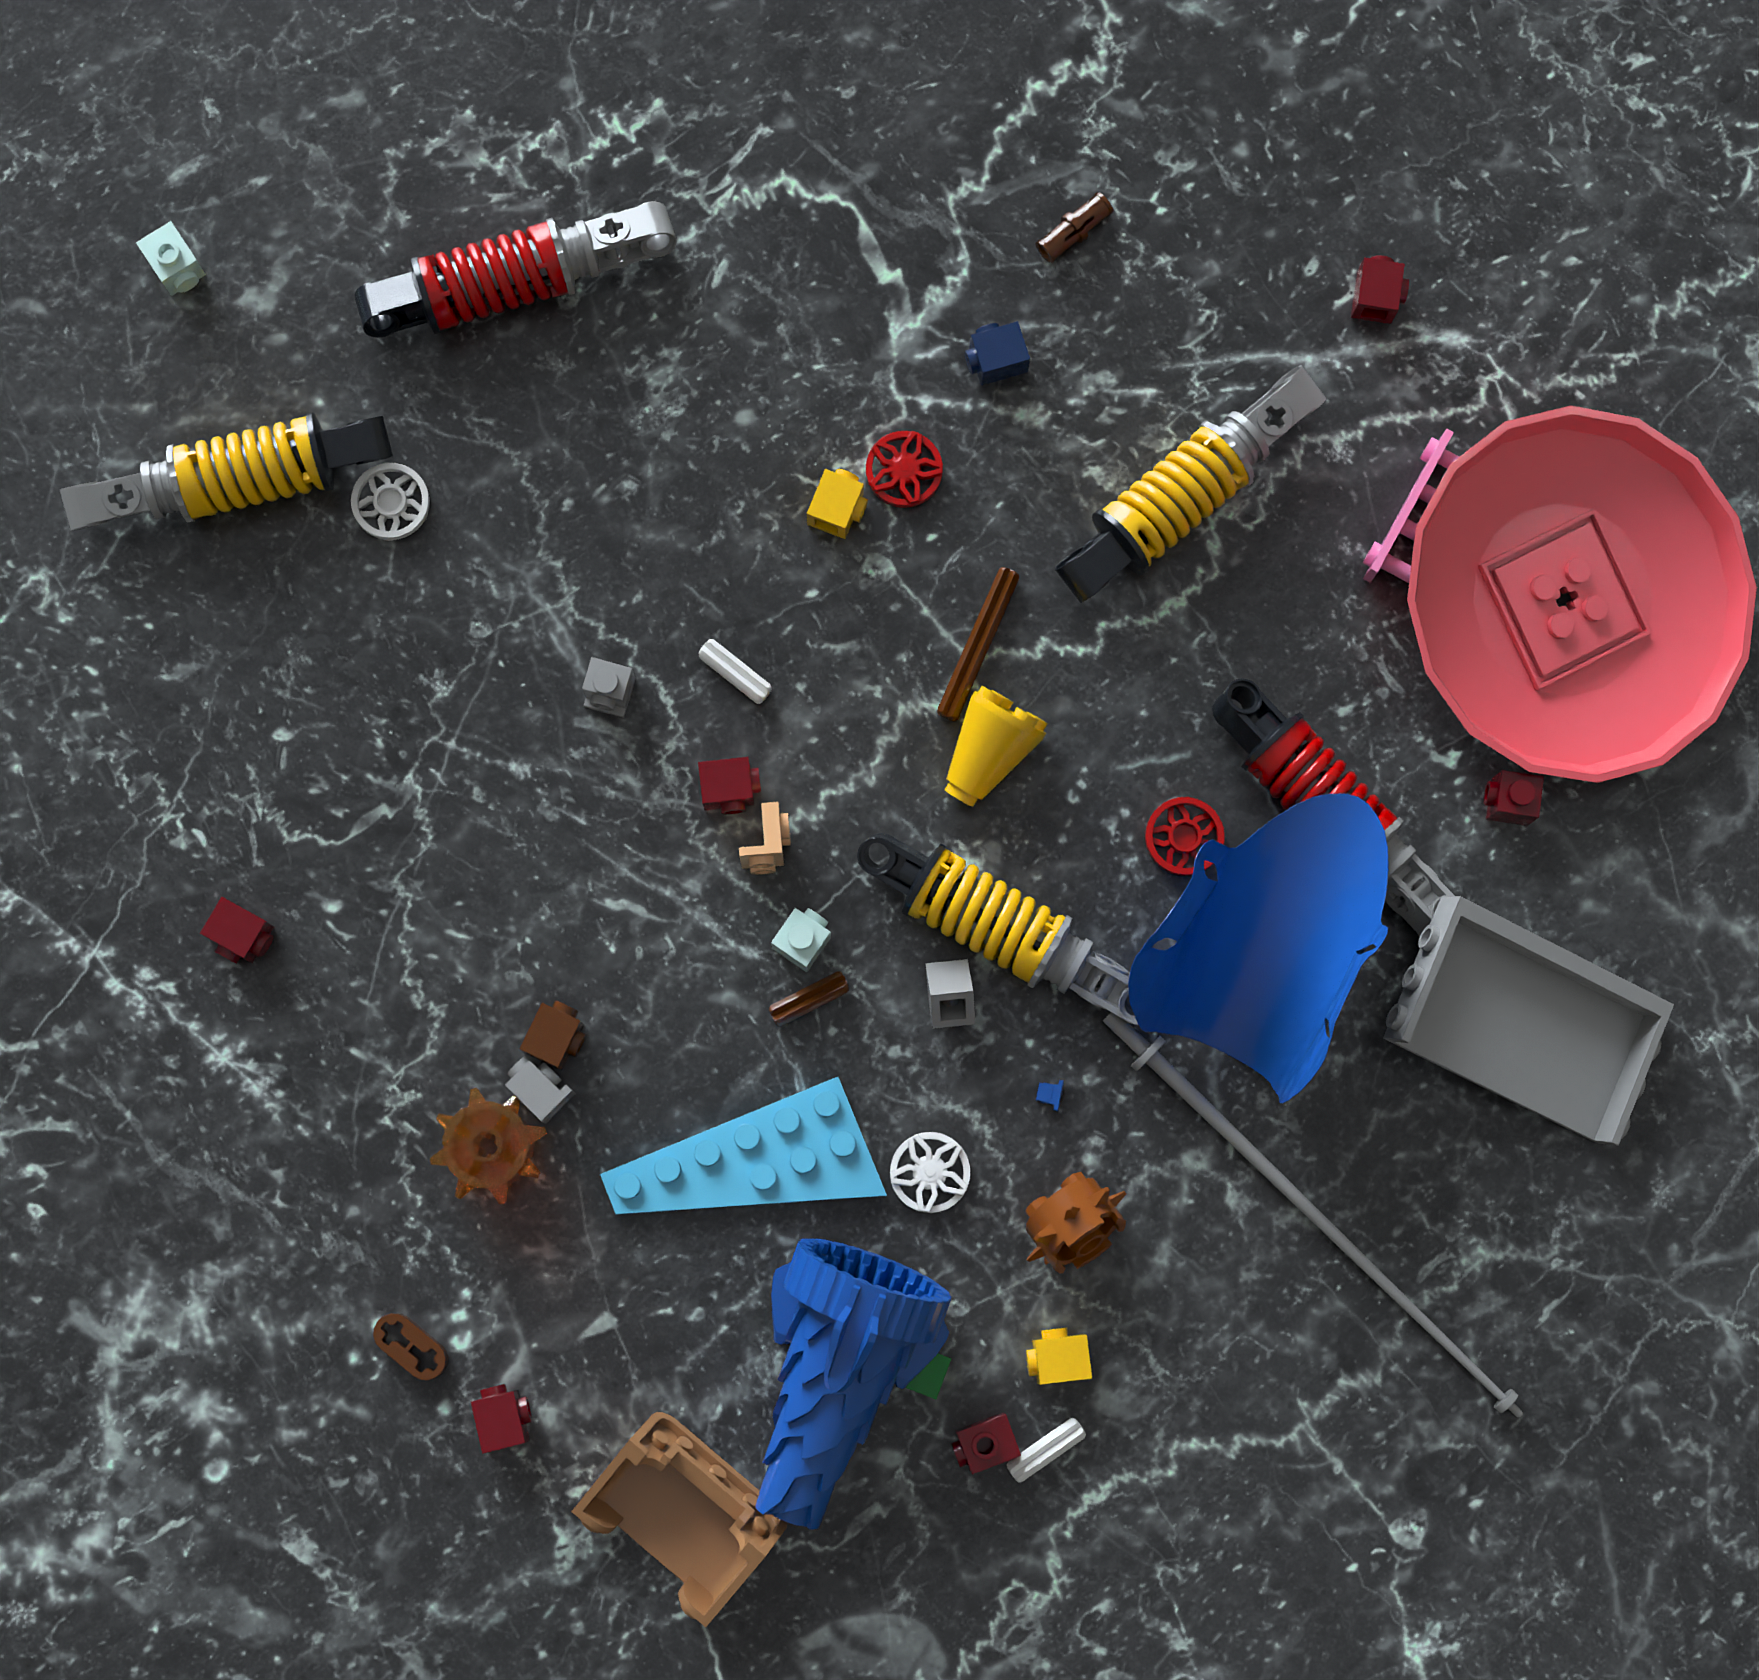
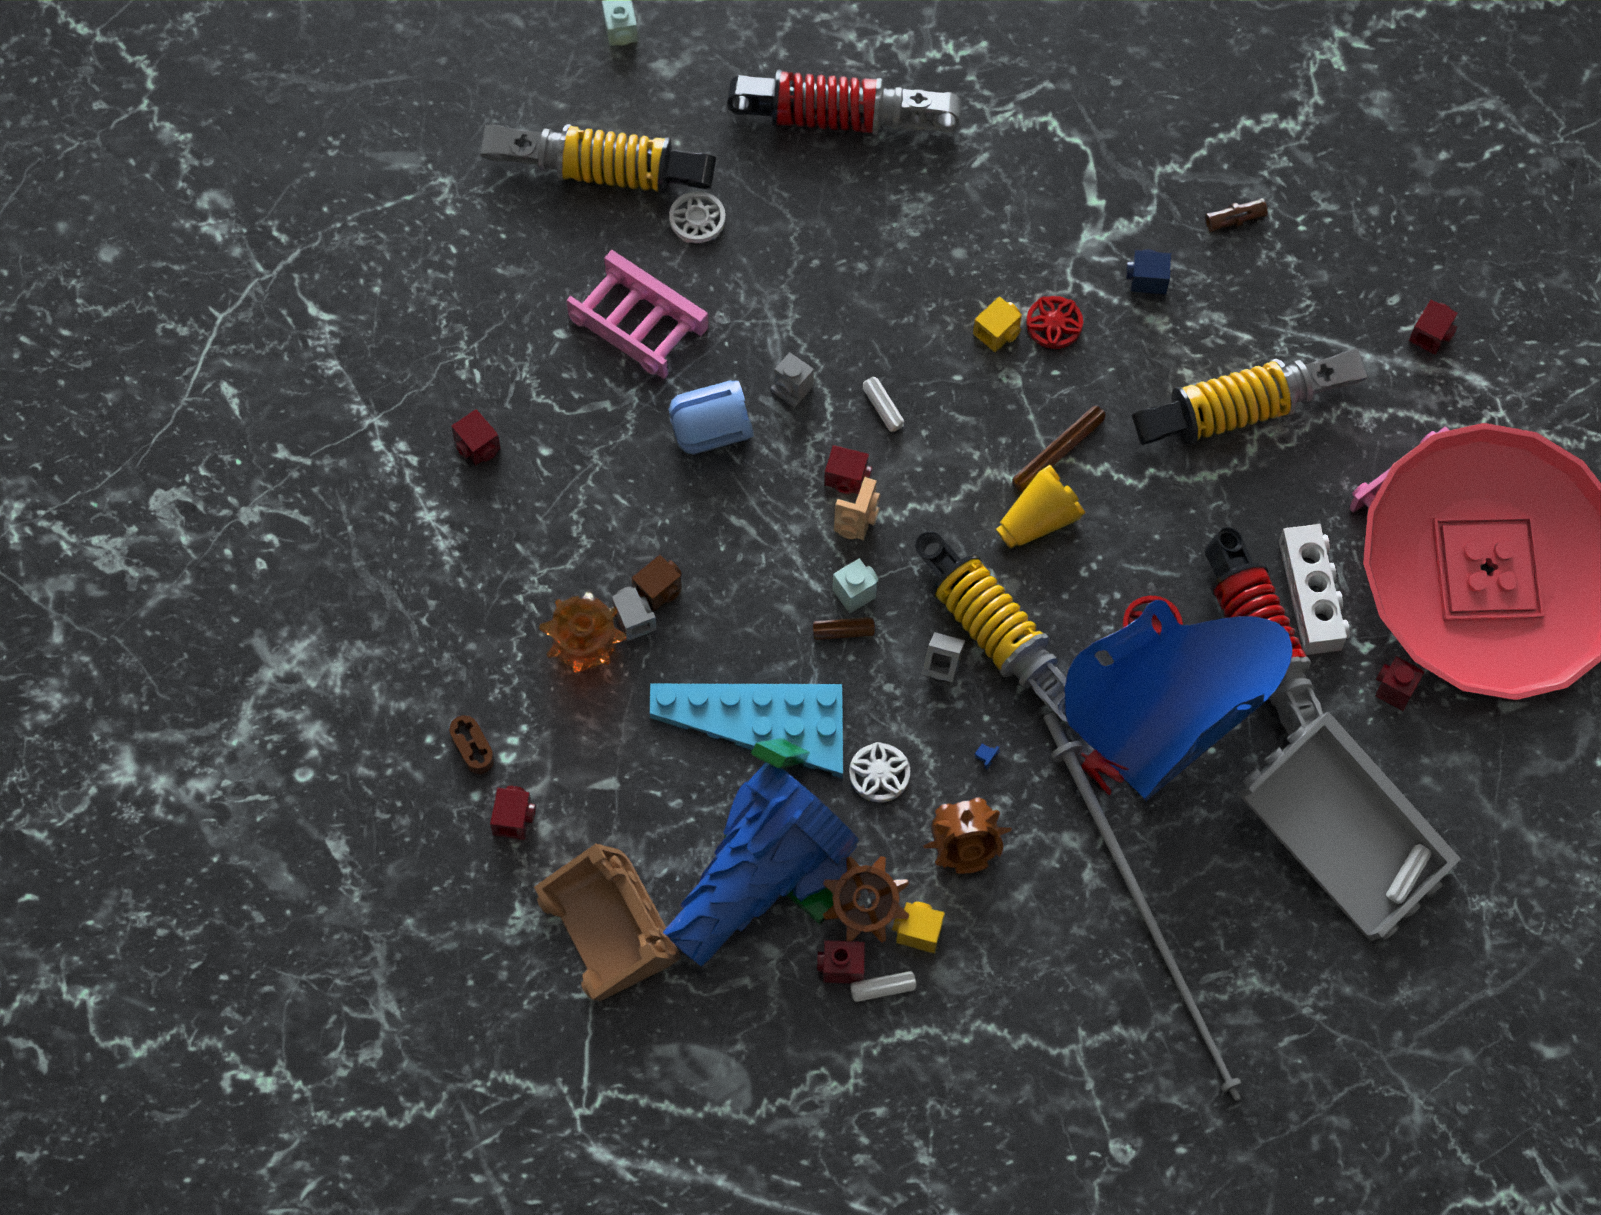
camera: 25 degrees right, 15 degrees down
(361, 633) = (642, 287): none -> bright pink fence
(526, 787) = (710, 417): none -> light blue cylinder
(810, 1229) = (780, 753): none -> green tile
(984, 1384) = (847, 892): none -> dark orange brick
(1194, 1054) = (1097, 762): none -> red piece
(1362, 735) = (1315, 634): none -> white brick
(1617, 1045) = (1408, 873): none -> white axle

